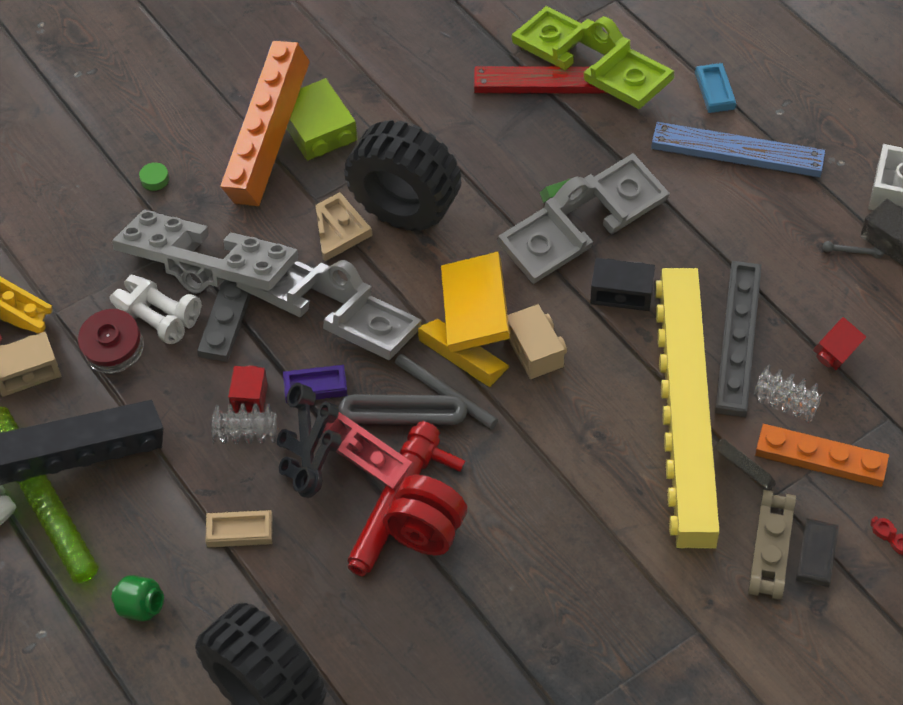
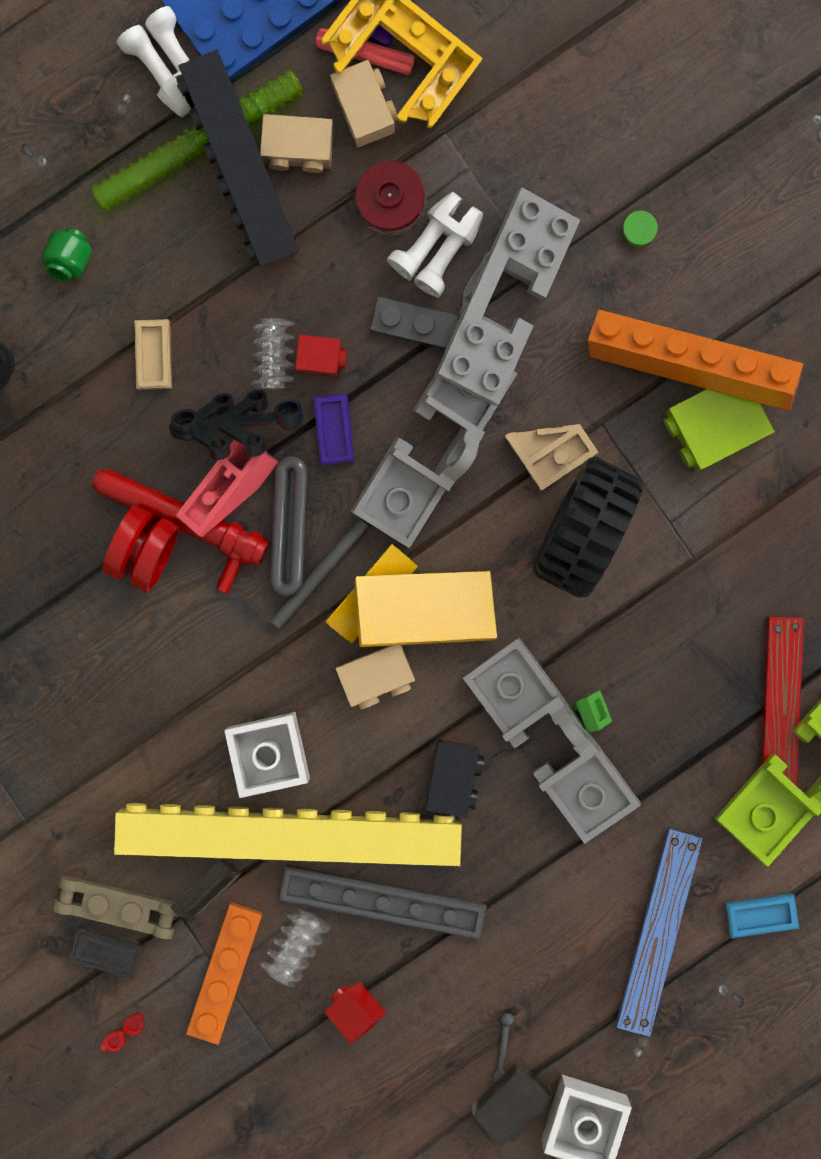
camera: 90 degrees right, 35 degrees up
(52, 400) = (297, 142): none -> tan brick
(613, 414) = (267, 754): none -> white brick

